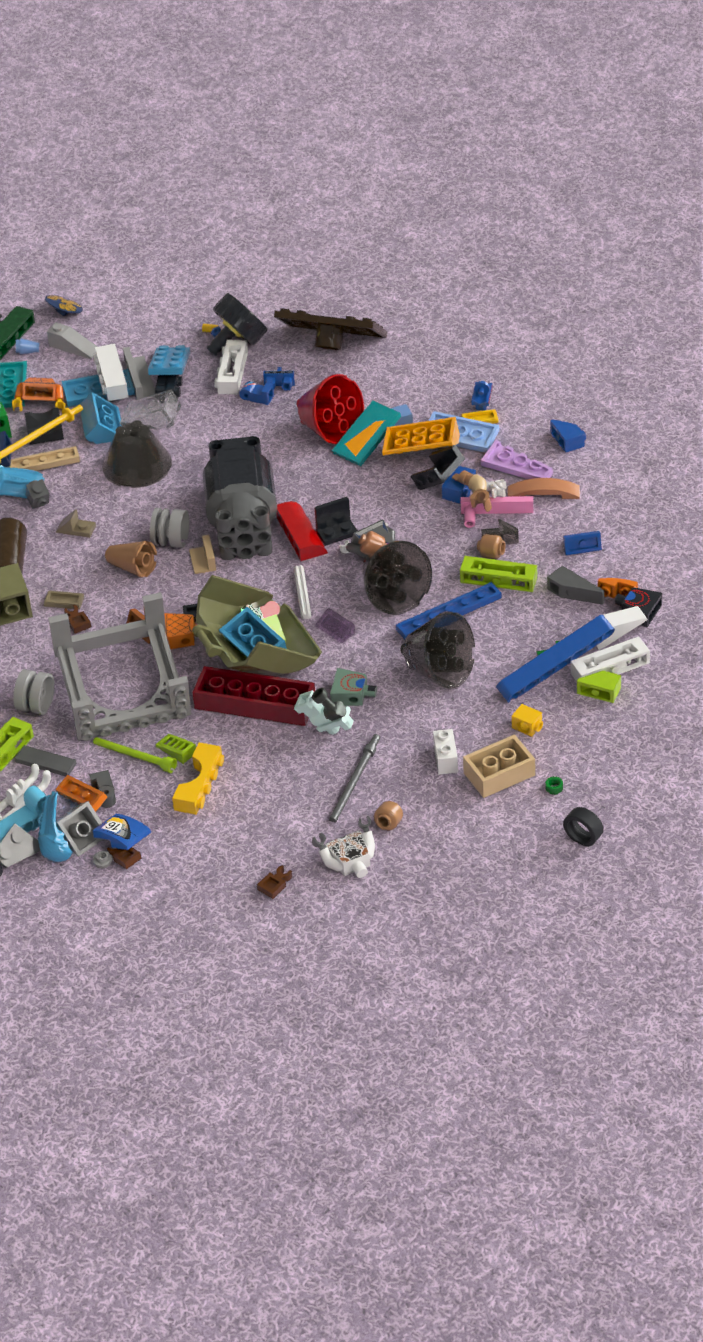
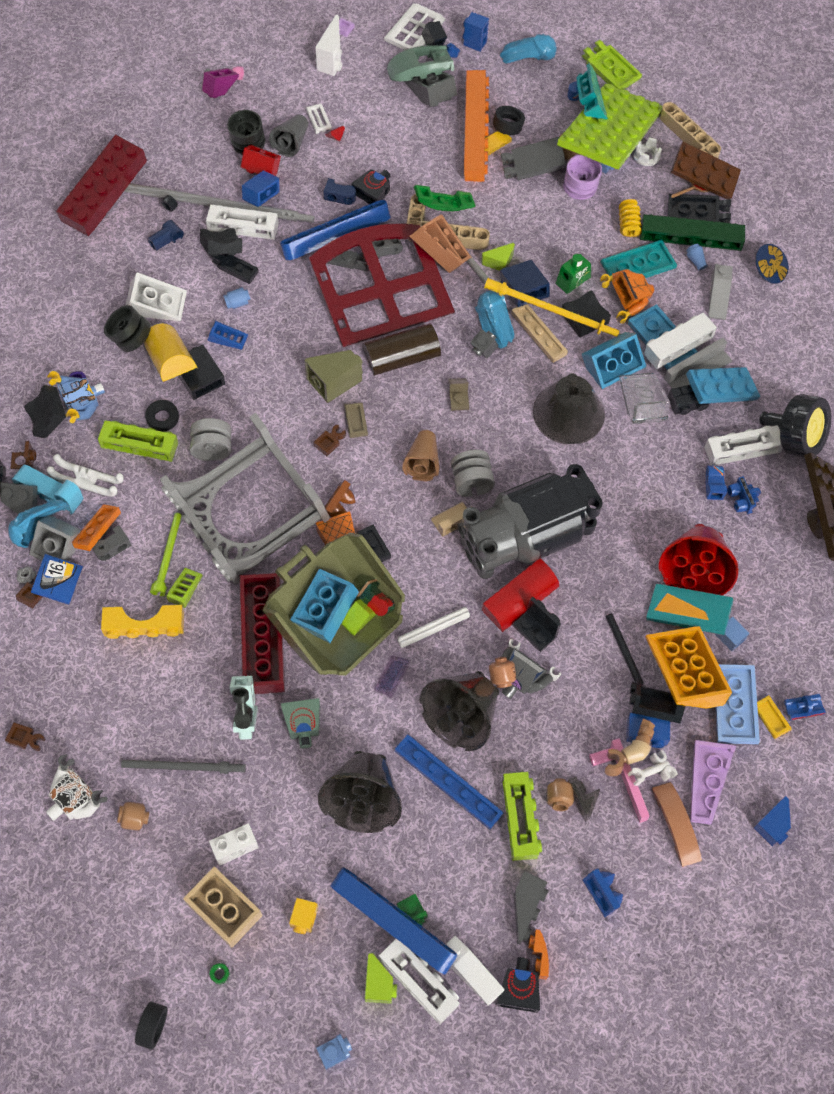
camera: 65 degrees right, 20 degrees up
(45, 760) = (140, 483): dark grey tile -> none
(379, 484) = (623, 647): none -> black bar
(647, 724) = (334, 1051): none -> medium blue bracket

